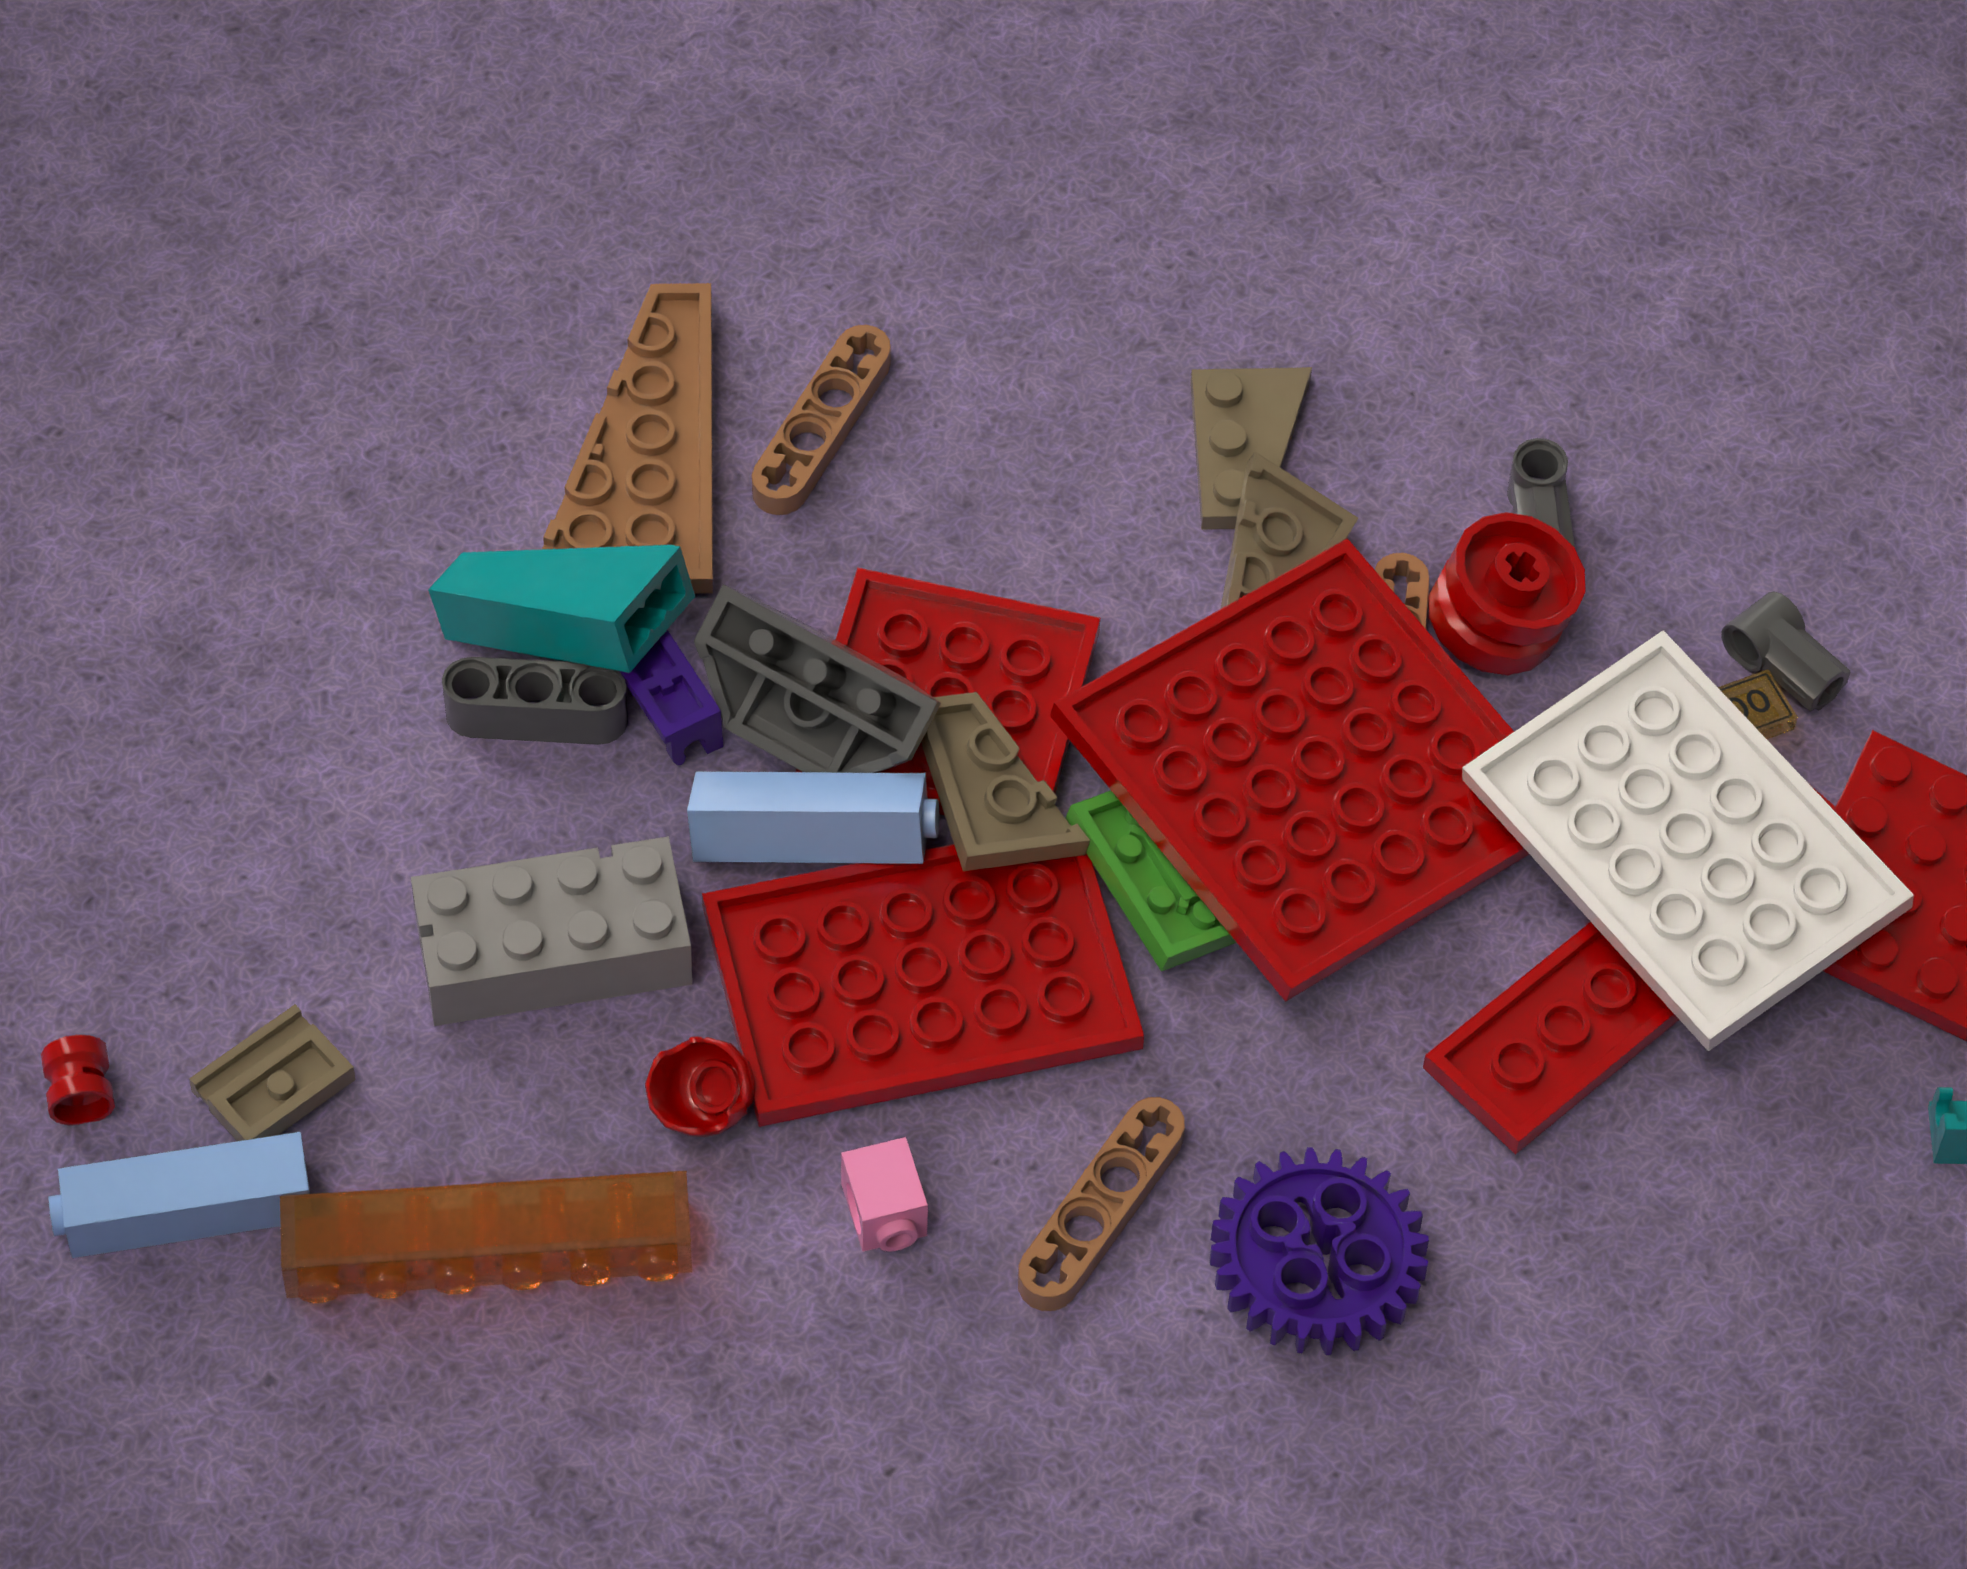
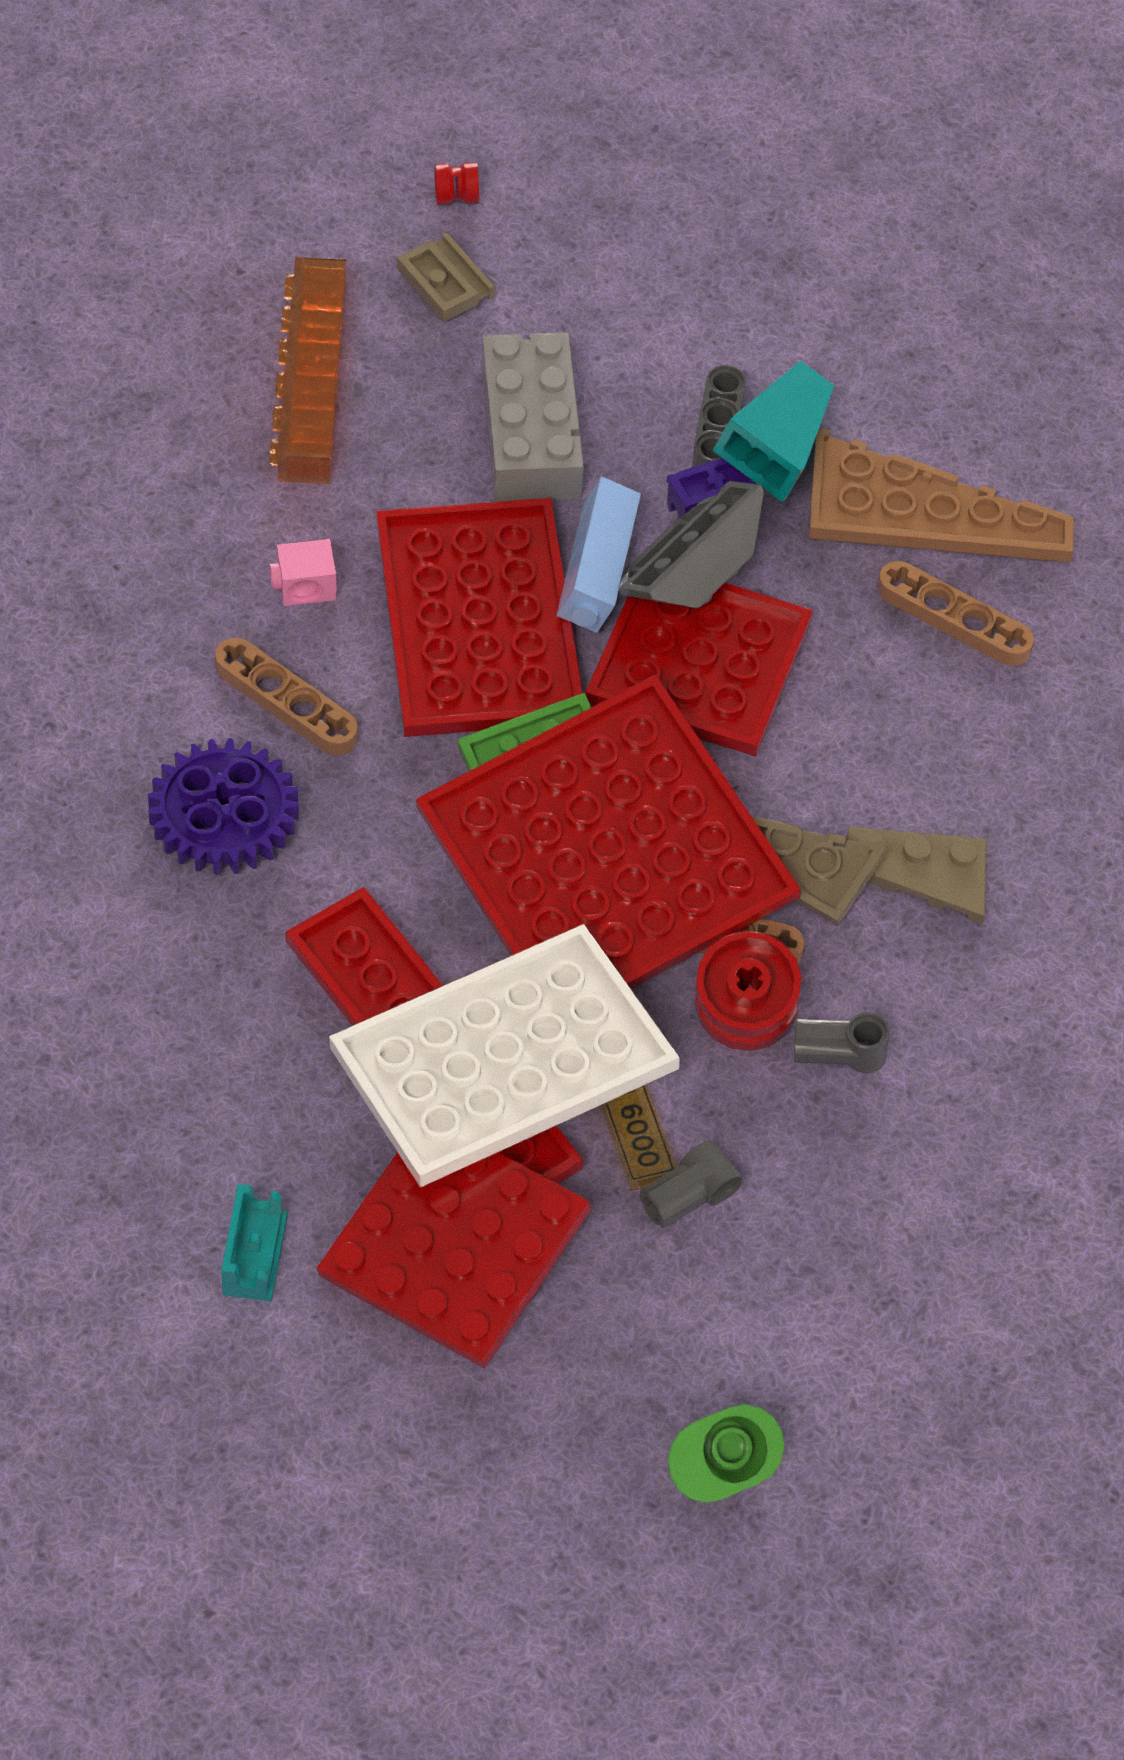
camera: 95 degrees right, 0 degrees up
(177, 1194) = (365, 229): light blue brick -> none
(700, 1087) = (398, 479): red hair -> none
(989, 795) = (608, 650): dark tan wing -> none

